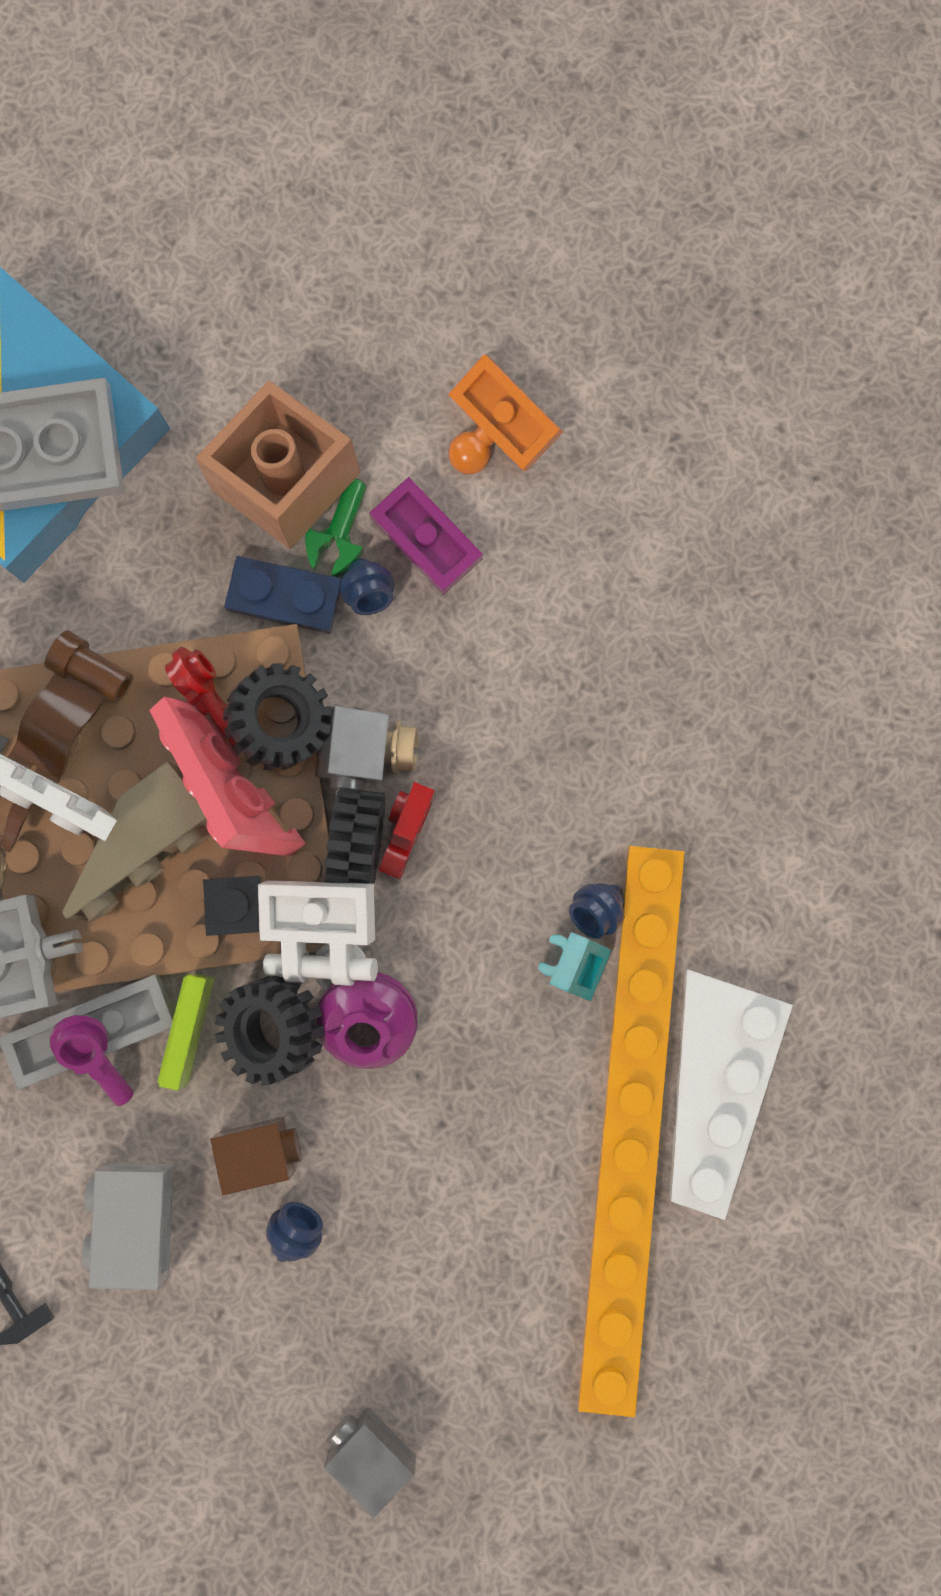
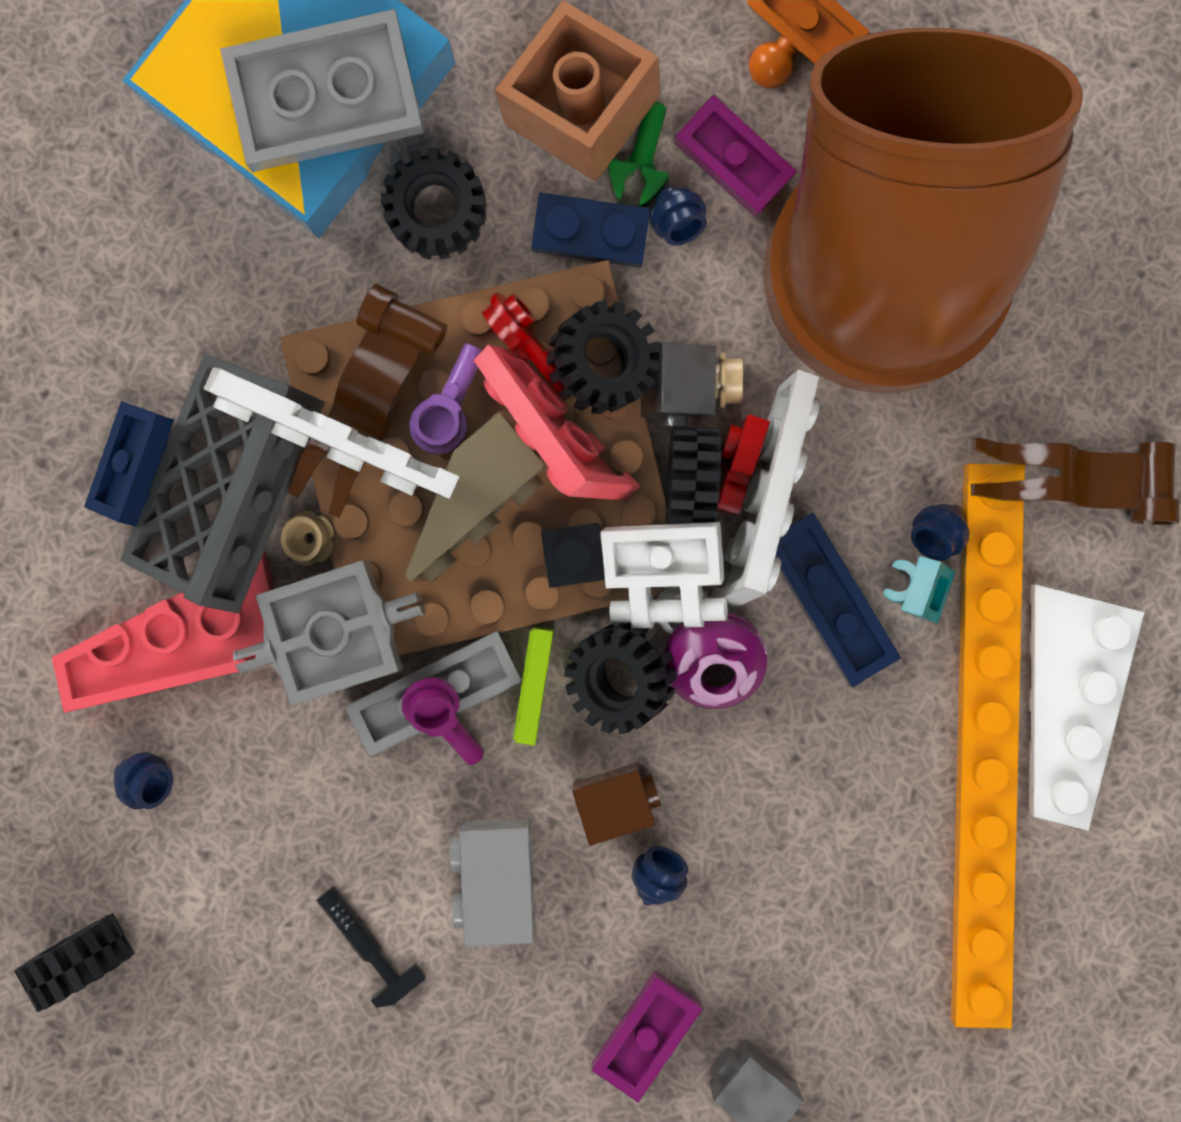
camera: 10 degrees left, 5 degrees up
(116, 534) = (425, 172): none -> black tyre
(116, 764) = (439, 422): none -> medium lavender plate
(267, 1396) = (646, 1036): none -> magenta plate
(428, 879) = (768, 493): none -> white wing
(486, 969) = (833, 602): none -> dark blue plate
(572, 595) = (917, 202): none -> dark orange cylinder
(745, 869) = (1089, 478): none -> reddish brown flag

